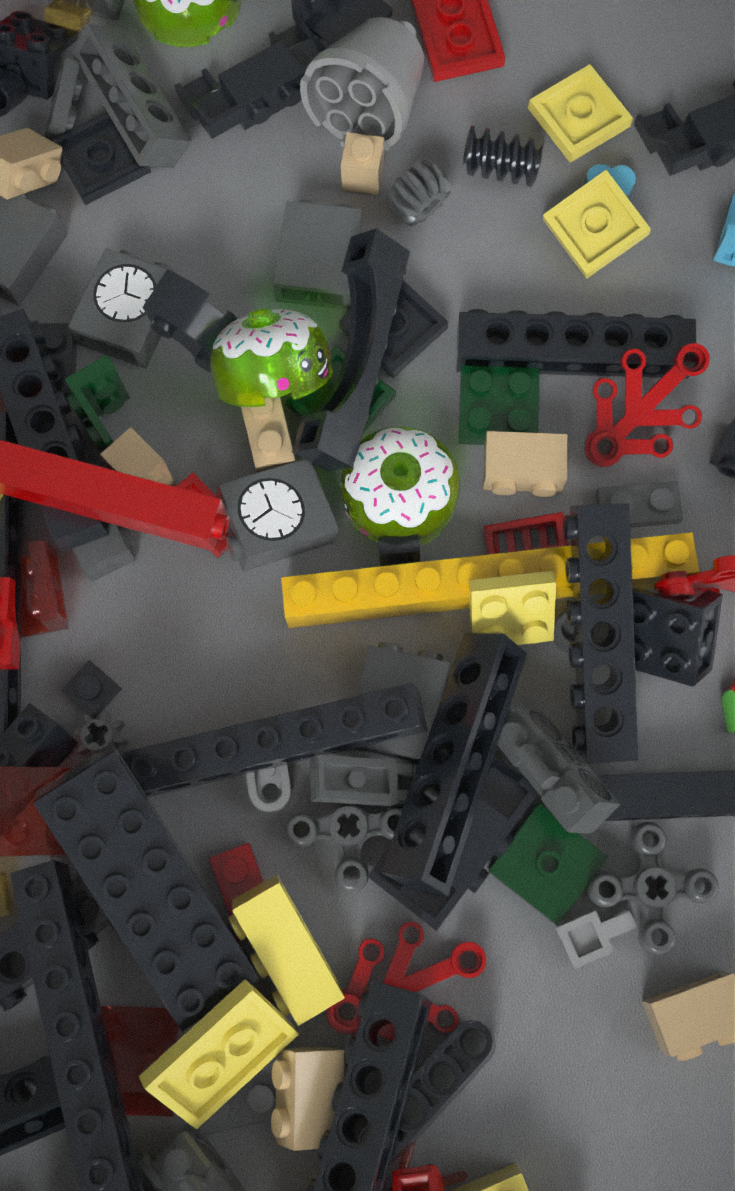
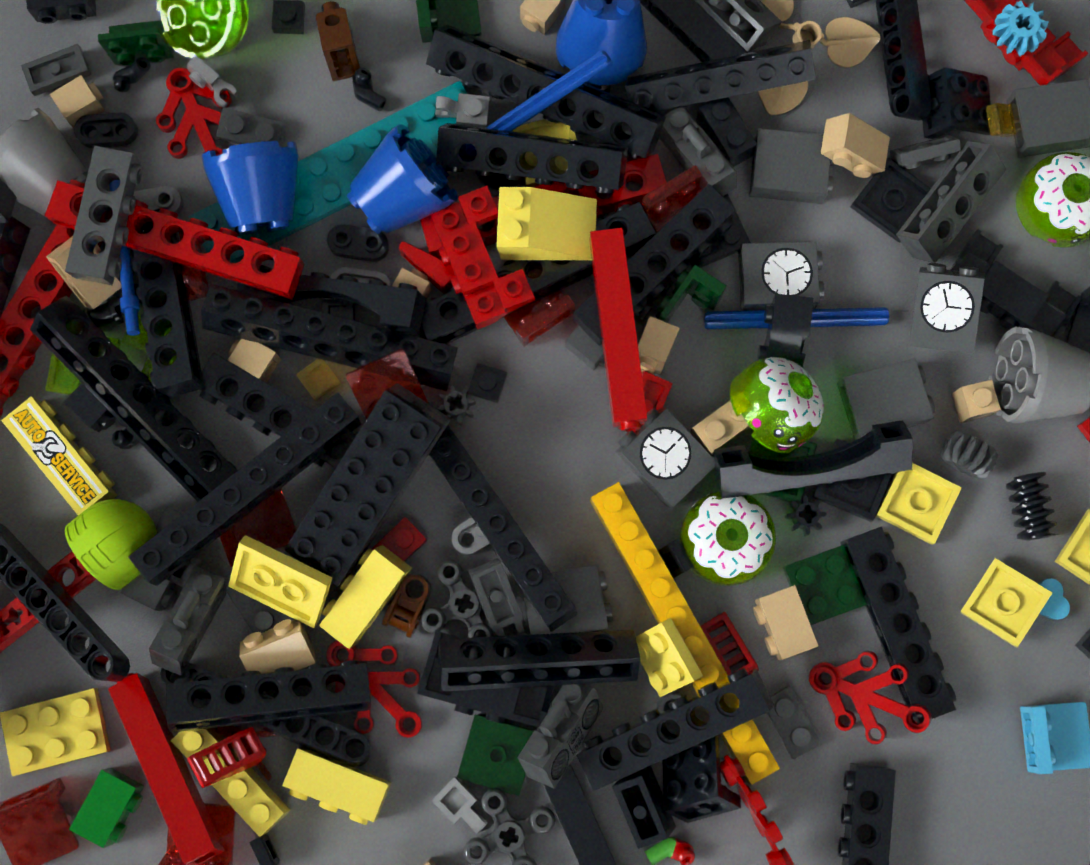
camera: 65 degrees right, 5 degrees up
(166, 349) = (820, 318): none -> blue axle
(247, 143) = (947, 308): none -> brick
(322, 901) = (407, 606): none -> reddish brown piece
(415, 380) = (811, 508): none -> black gear
(449, 268) = (918, 502): none -> light yellow plate
(509, 1087) = (336, 785): none -> light yellow brick
(681, 709) = (644, 807): none -> black brick

